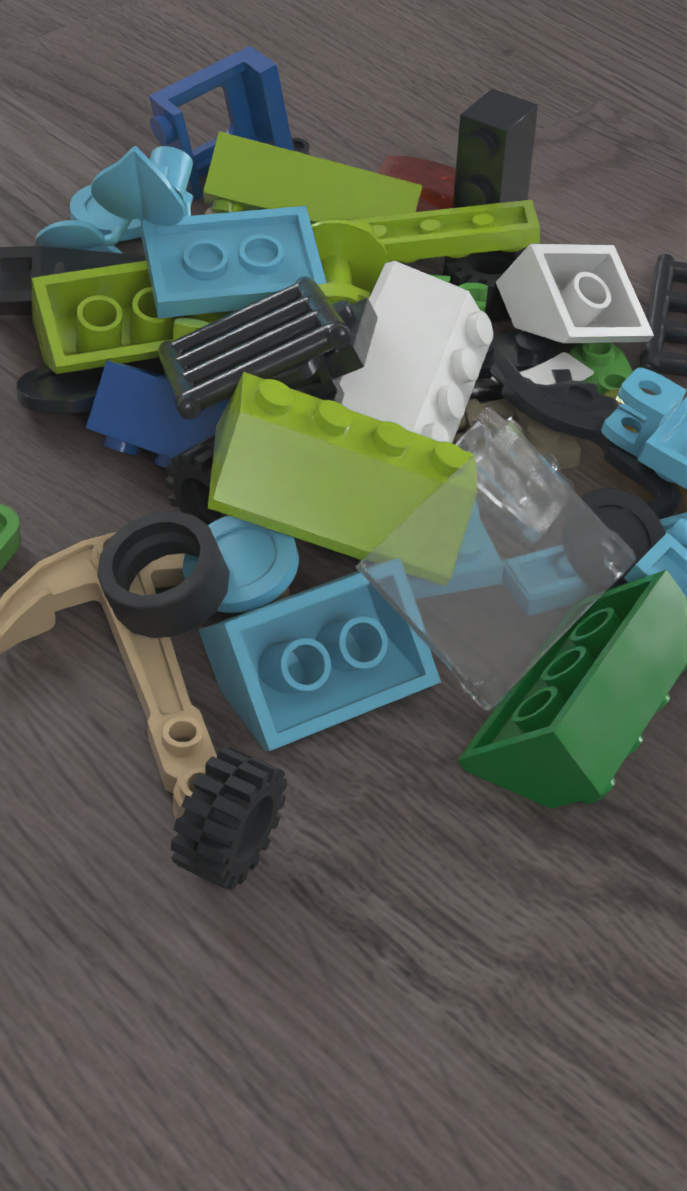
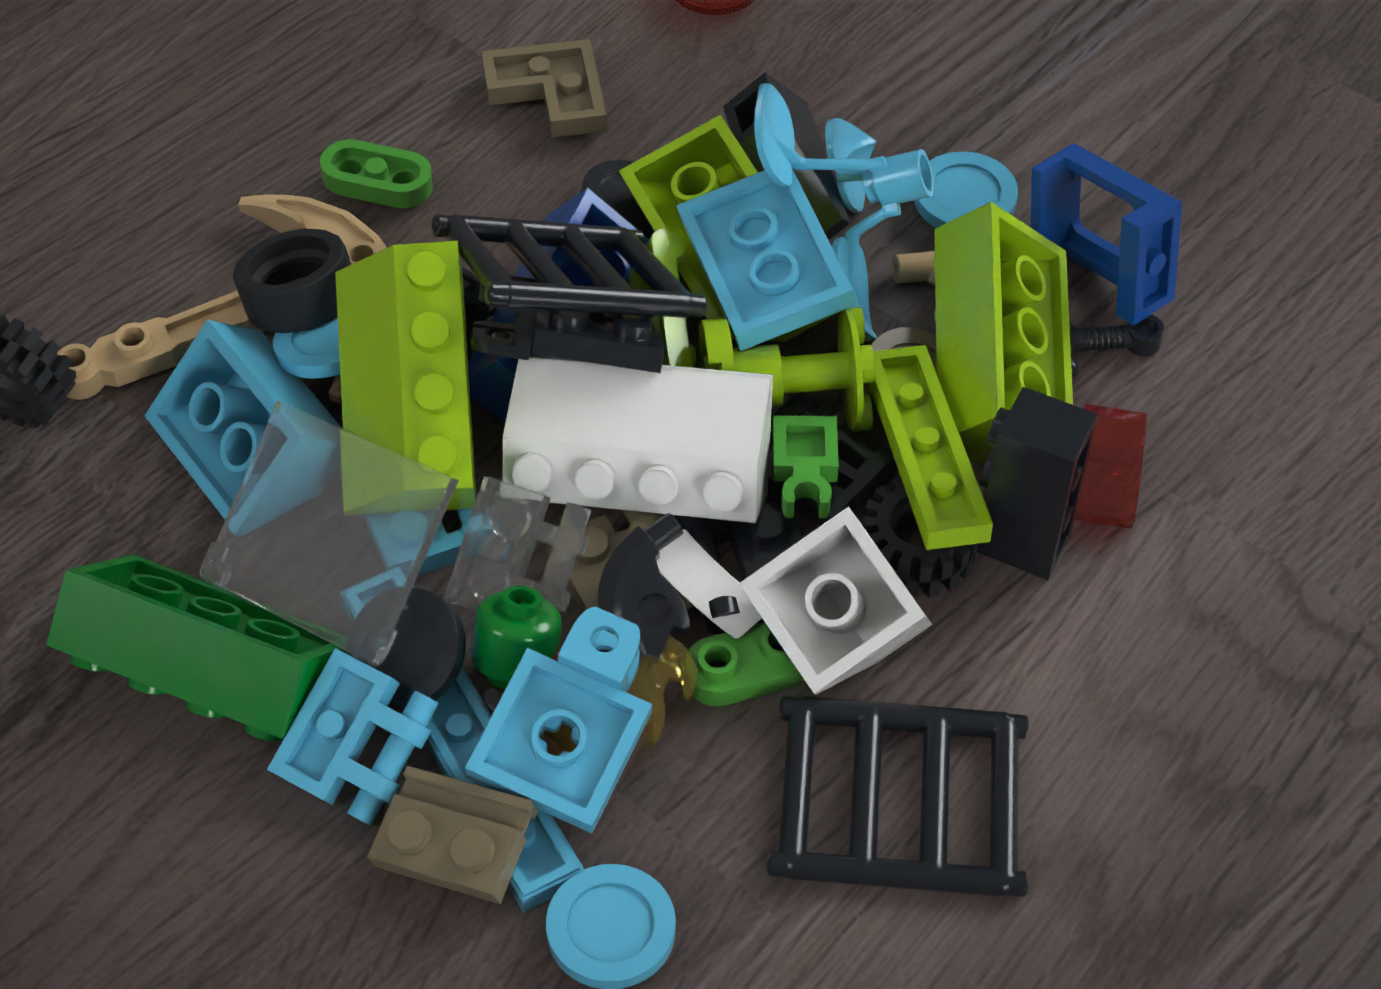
camera: 85 degrees right, 10 degrees up
(601, 463) = (508, 626): none -> green head

